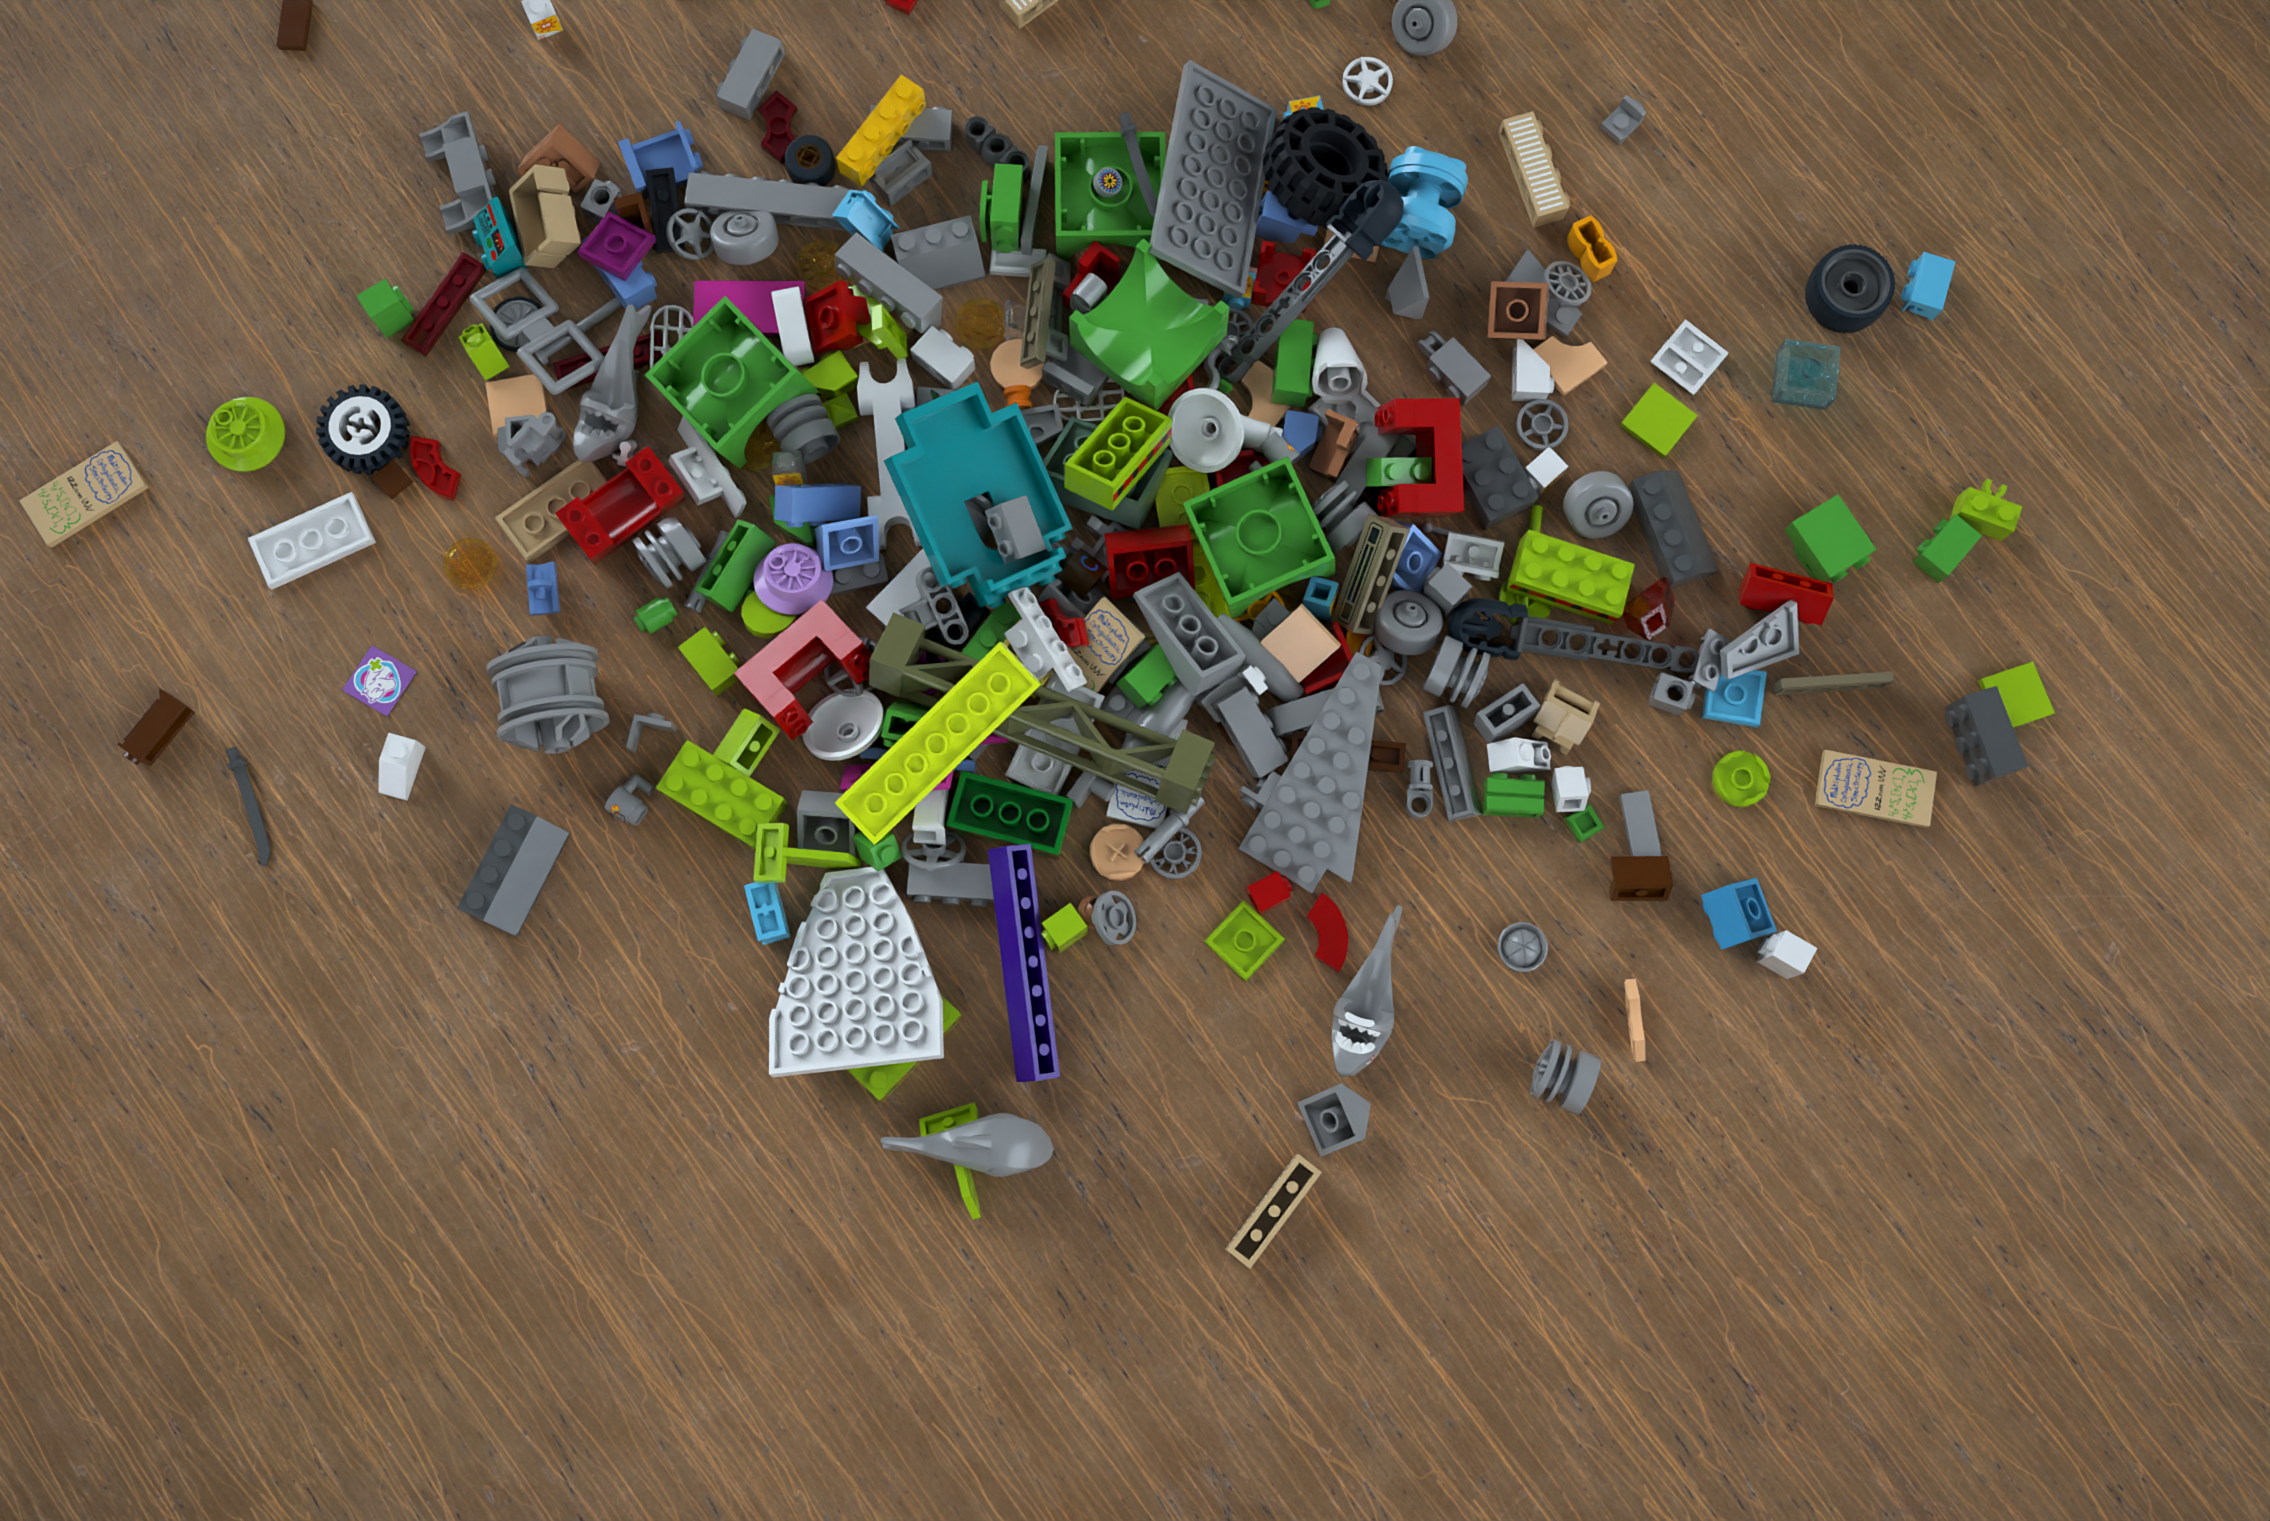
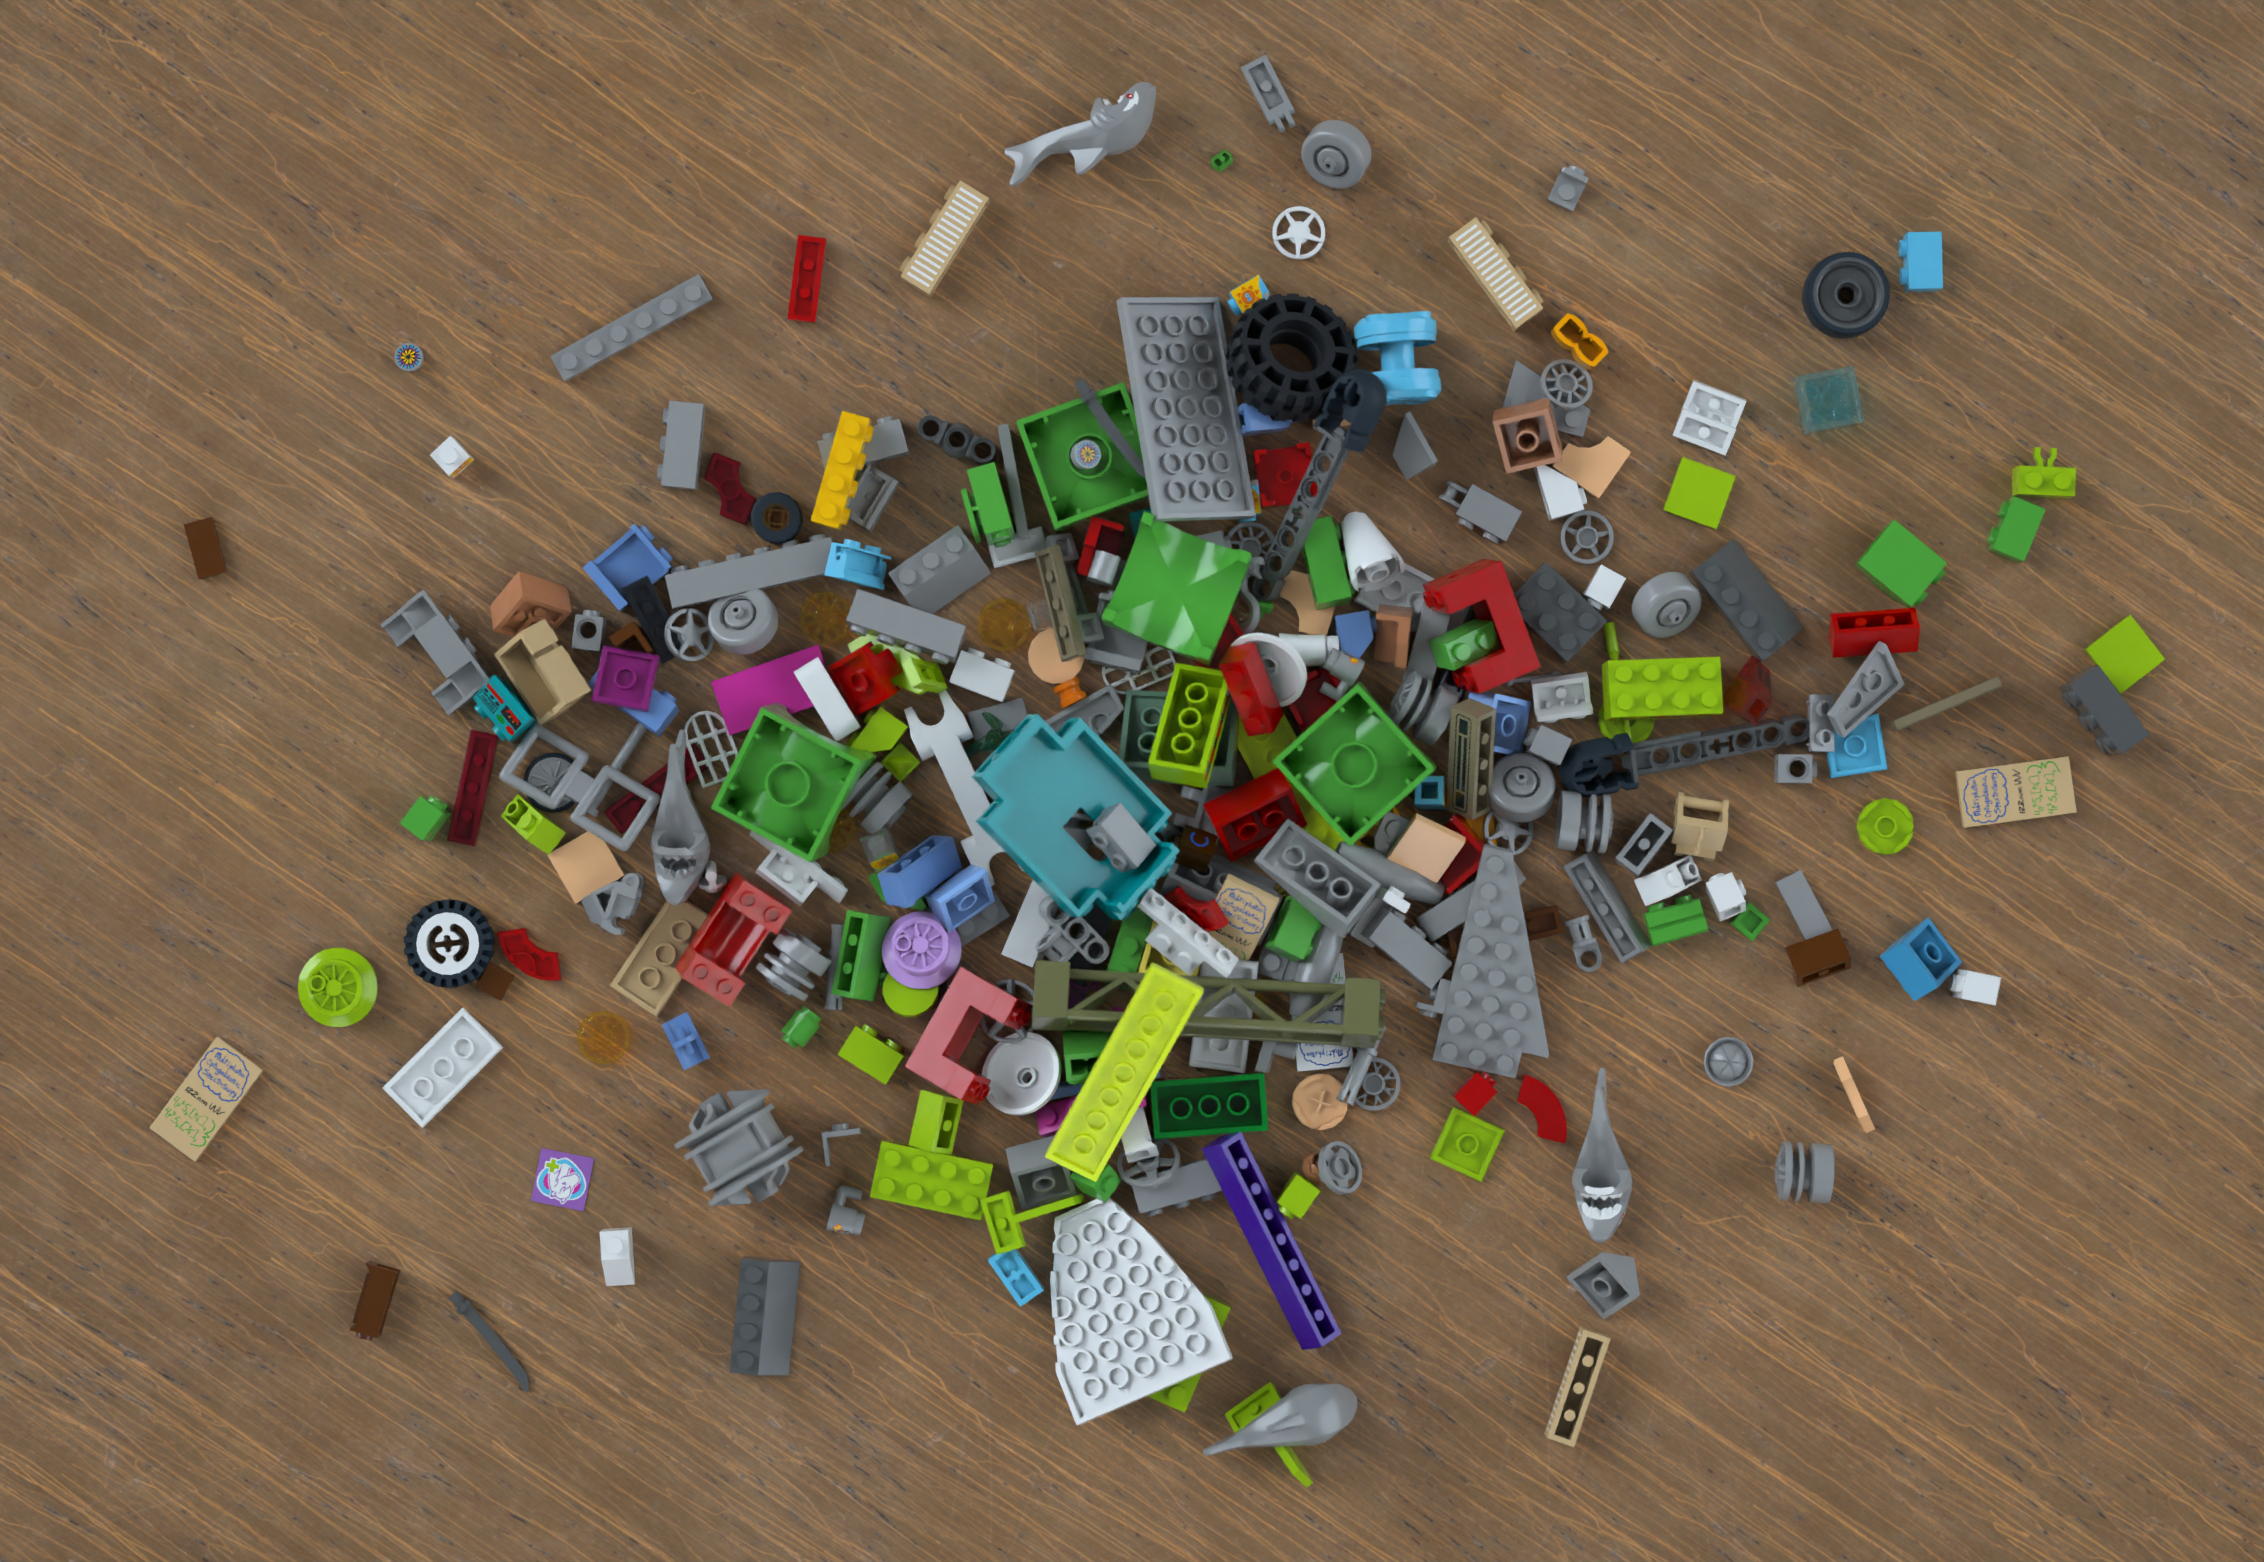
camera: 15 degrees left, 10 degrees up
(1186, 440) = (1251, 689): none -> red brick

